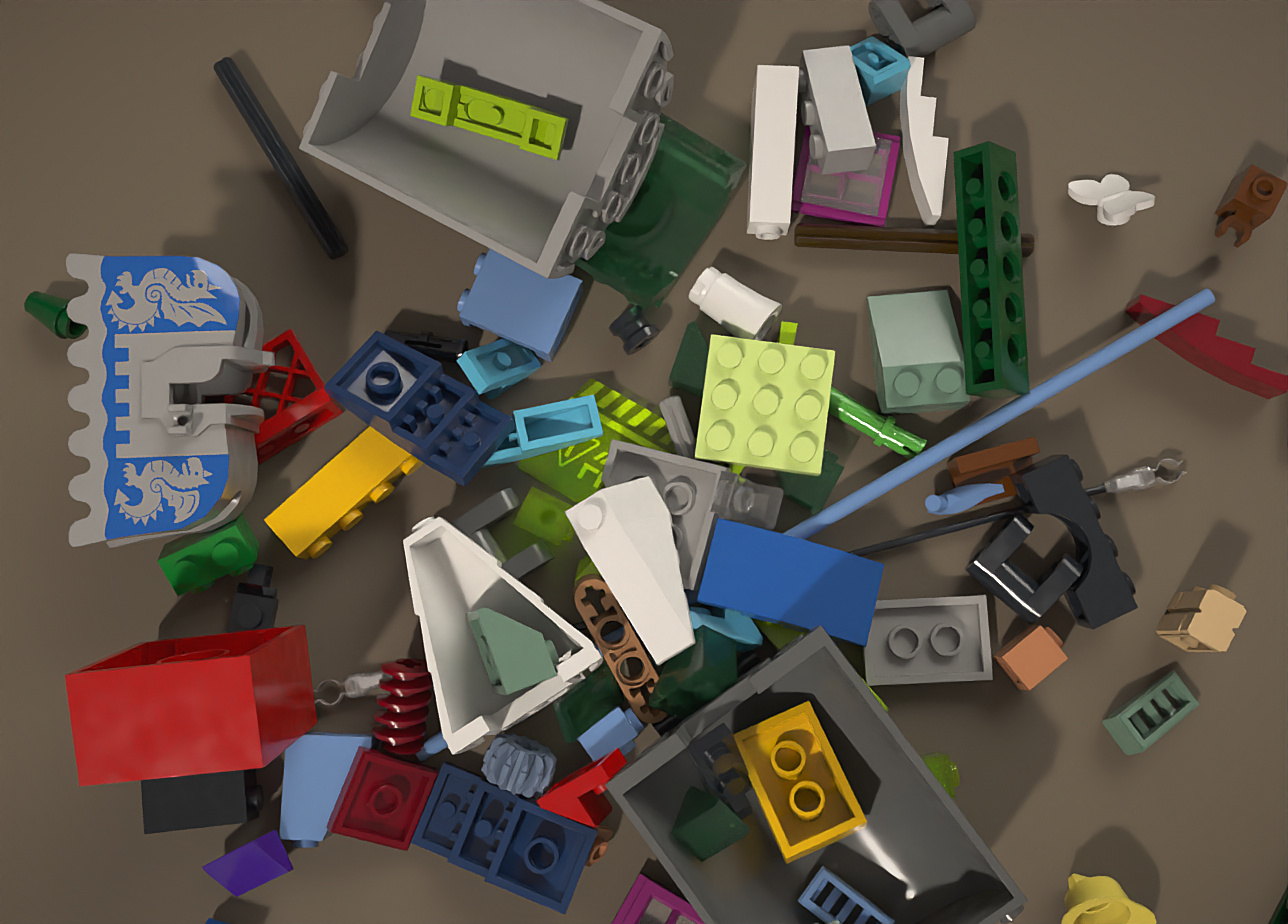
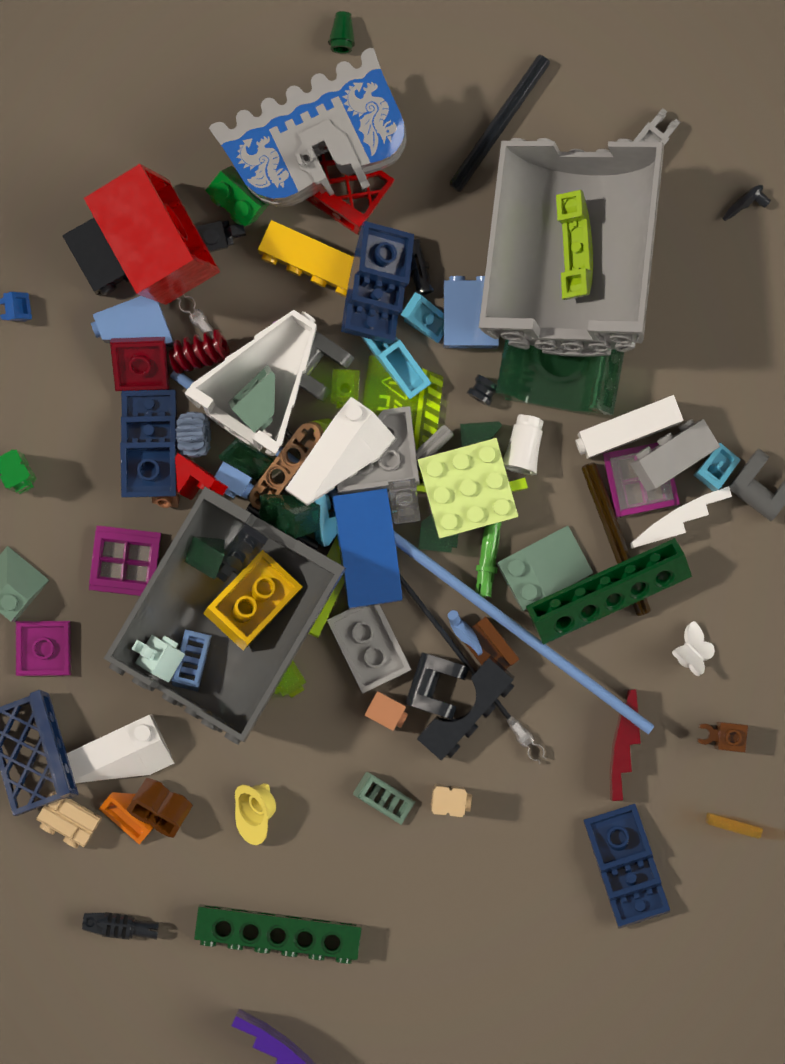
camera: 60 degrees right, 5 degrees up
(251, 864) = (70, 304): dark purple slope -> none

